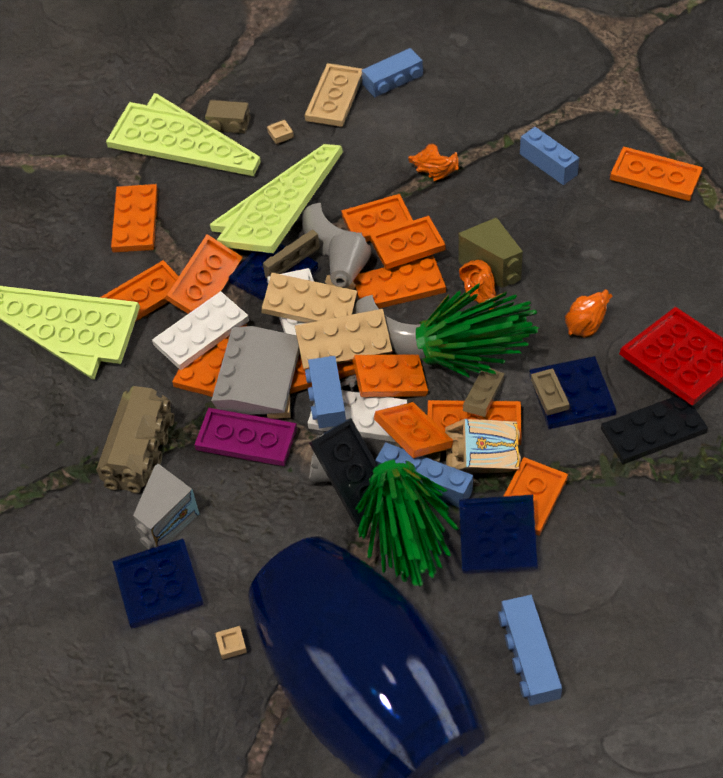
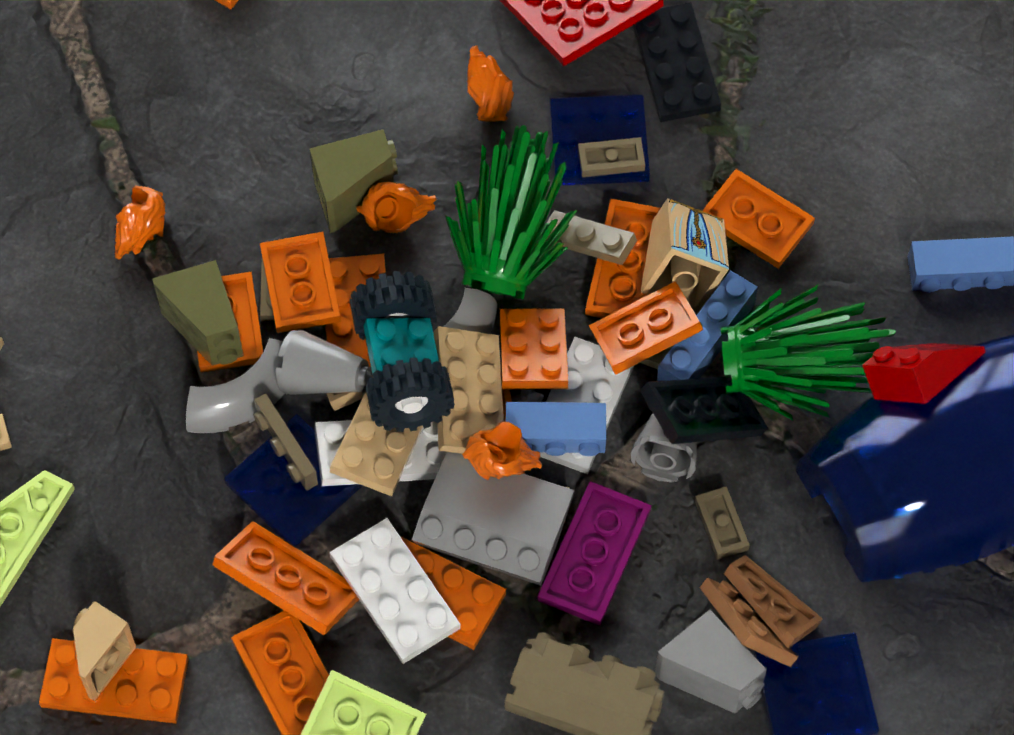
camera: 85 degrees left, 10 degrees up
(138, 191) = (101, 646): none -> tan slope
(194, 523) = (745, 622): none -> medium nougat wing
(218, 545) = (772, 601): none -> medium nougat wing
(231, 642) = (919, 605): tan plate -> none
(271, 211) = (169, 465): yellowish green wing -> none
(279, 507) = (722, 523): none -> dark tan plate
(292, 355) = (500, 452): none -> orange hair
(350, 283) = (407, 379): none -> black plate
(368, 194) = (201, 311): none -> olive slope
(393, 584) = (917, 370): none -> red slope
(498, 534) = (812, 252): clear blue plate -> none
(549, 155) = (169, 70): medium blue brick -> none

